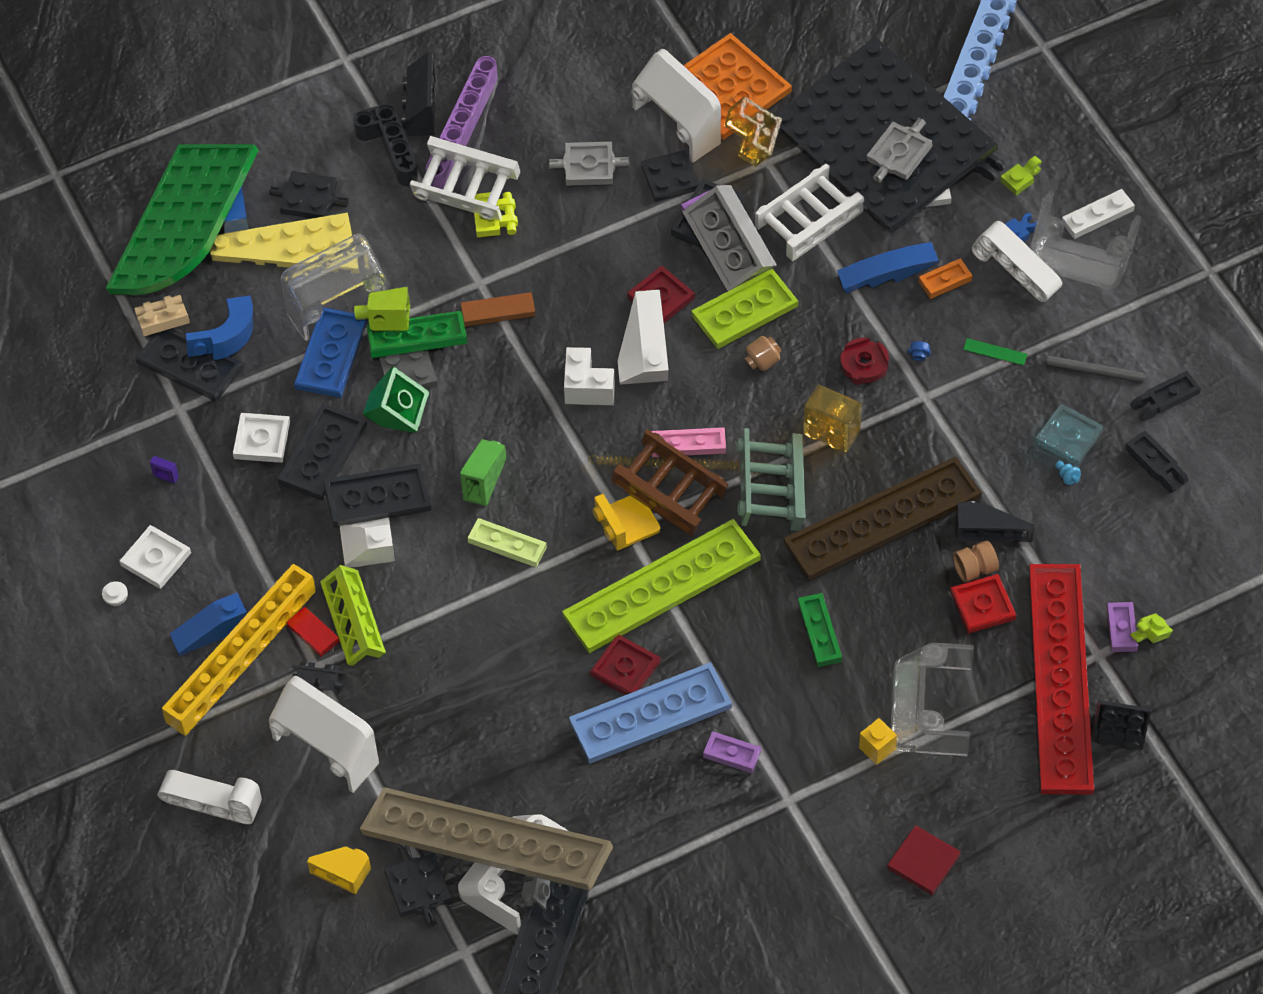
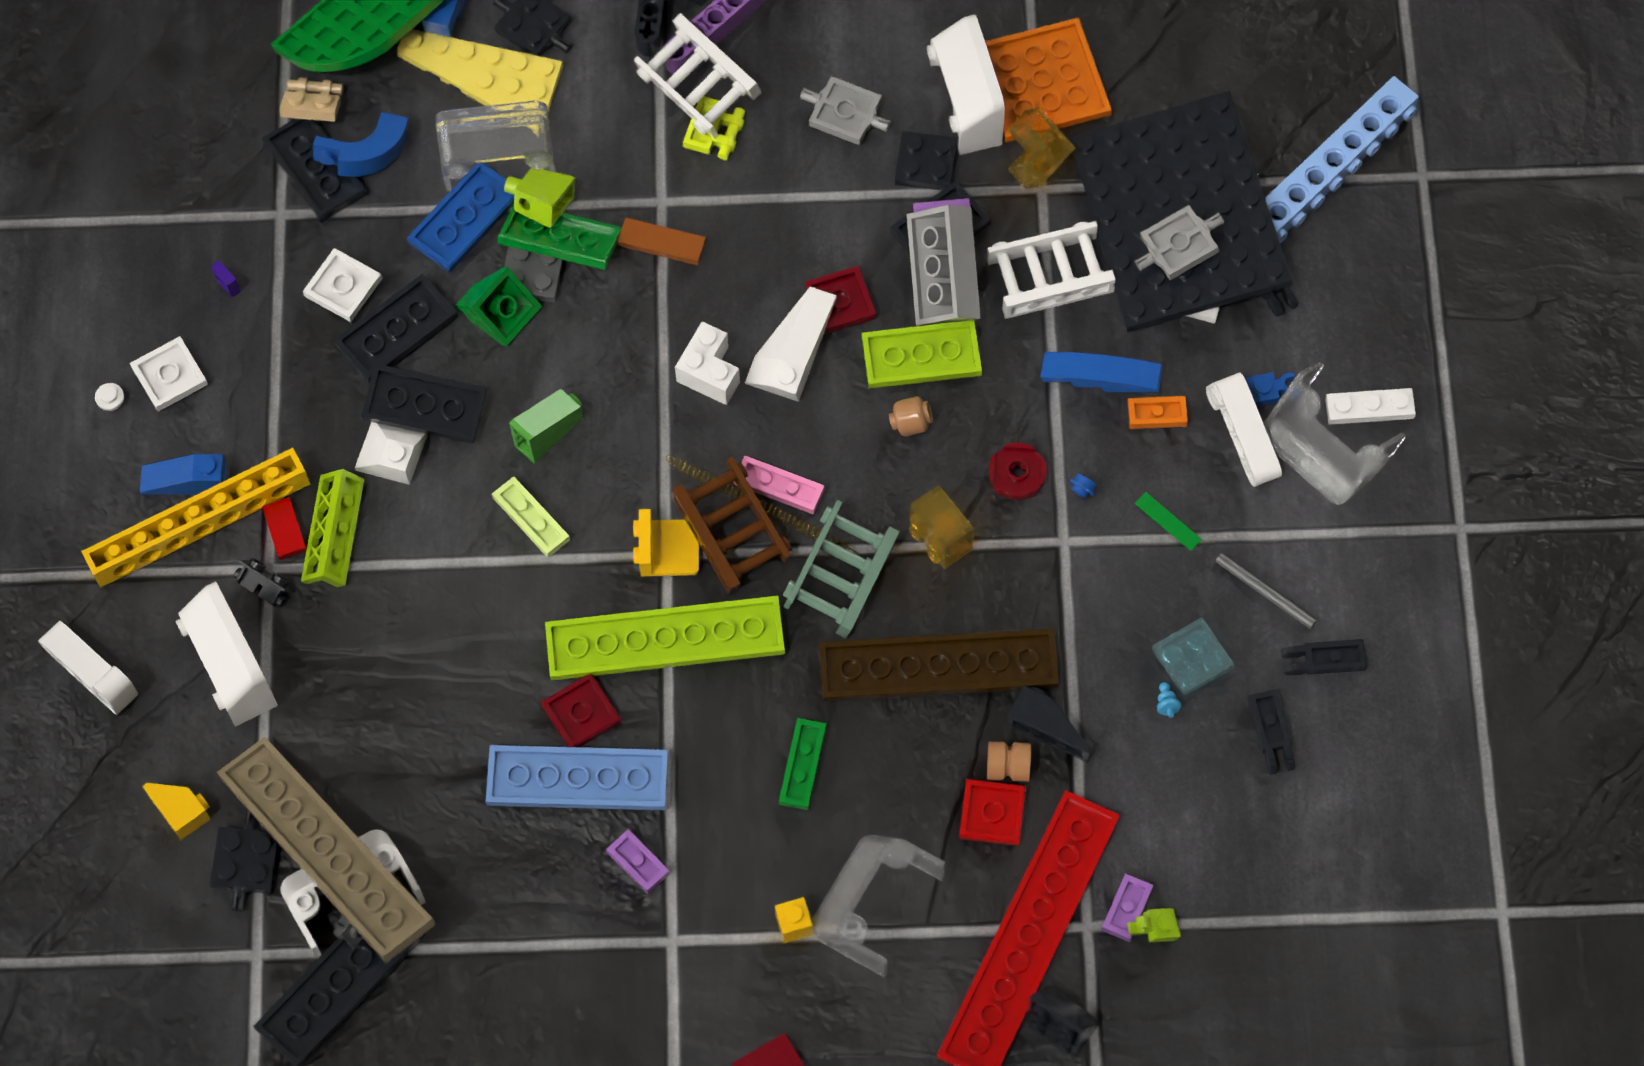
camera: 25 degrees right, 10 degrees up
(1020, 177) = (1306, 326): lime plate -> none

